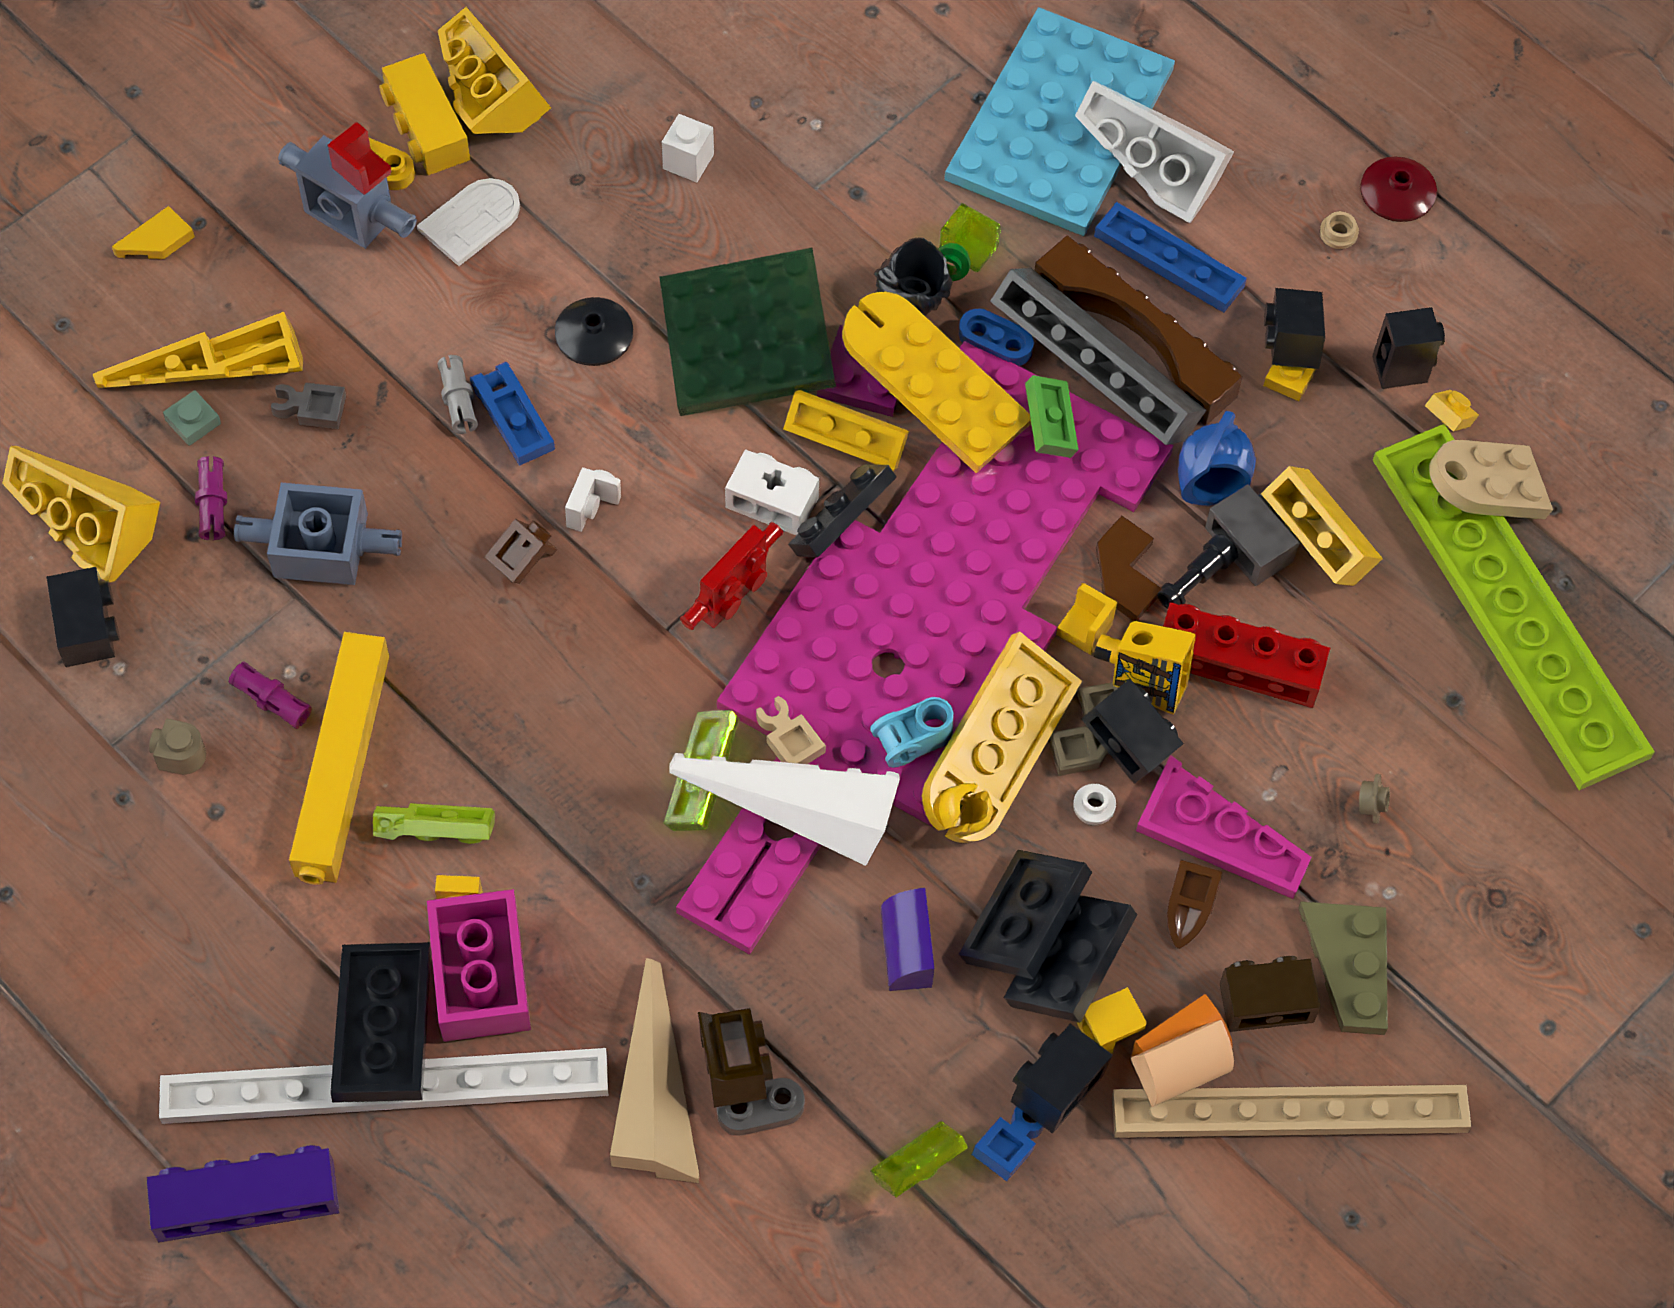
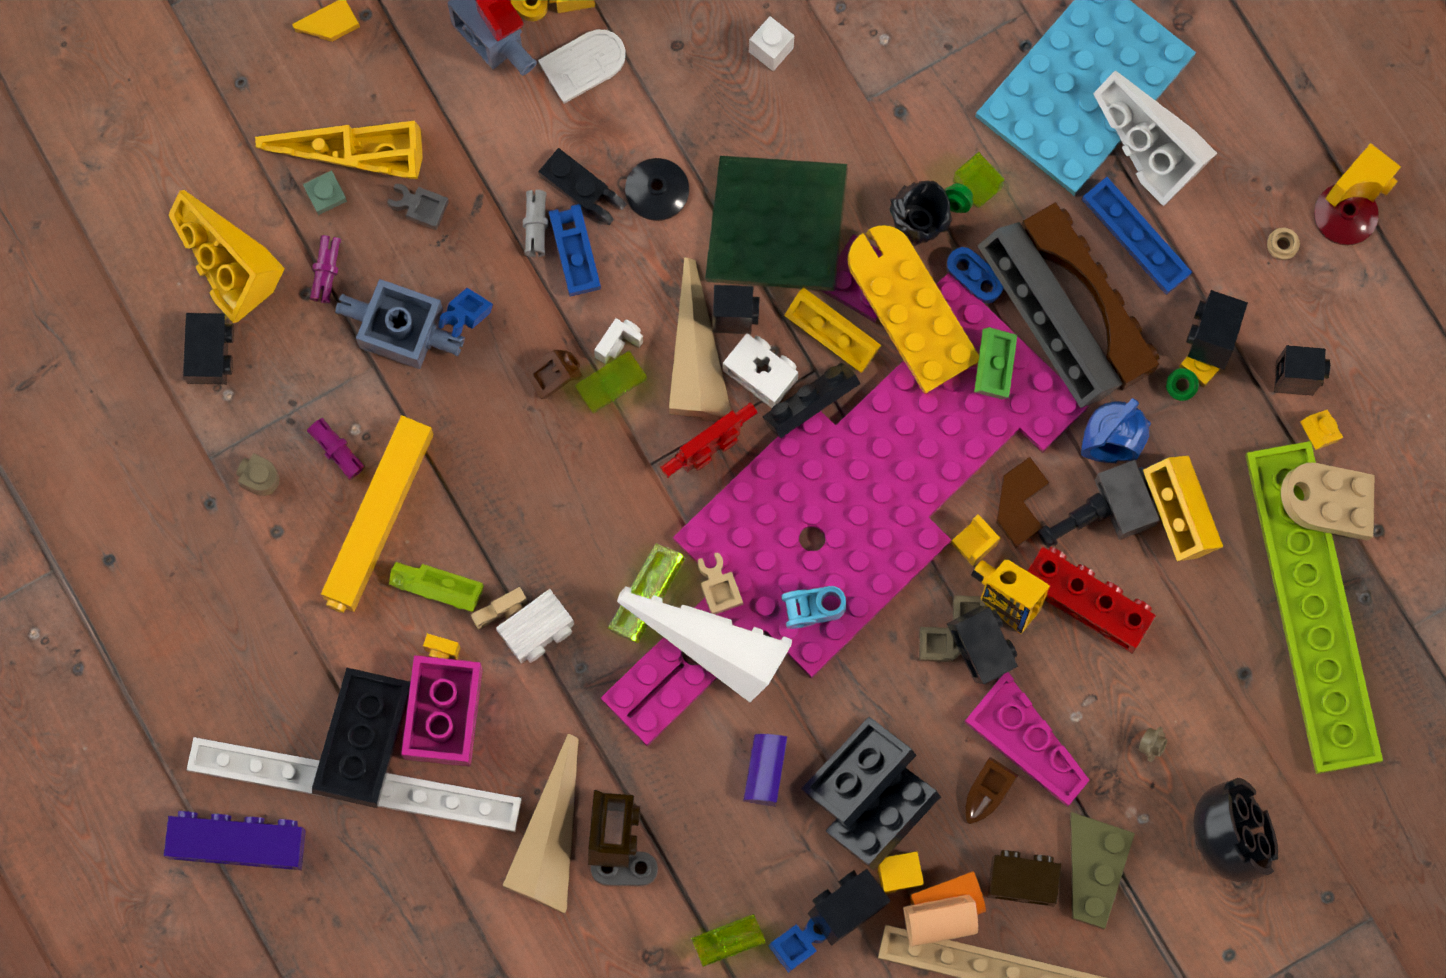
camera: 15 degrees right, 15 degrees up
(395, 504) = (465, 309): none -> blue plate
(501, 343) = (579, 185): none -> black hinge
(528, 825) = (502, 607): none -> tan plate
(573, 841) = (536, 627): none -> white brick
(594, 545) = (611, 382): none -> clear neon green plate
(695, 513) = (697, 373): none -> tan wedge
(722, 426) = (734, 309): none -> black brick
(997, 741) = (877, 627): yellow plate -> none
(1094, 815) = (931, 701): white plate -> none
(1271, 388) = (1174, 377): none -> green plate
(1410, 140) = (1366, 177): none -> yellow arch
(1506, 874) = (1225, 835): none -> black cylinder

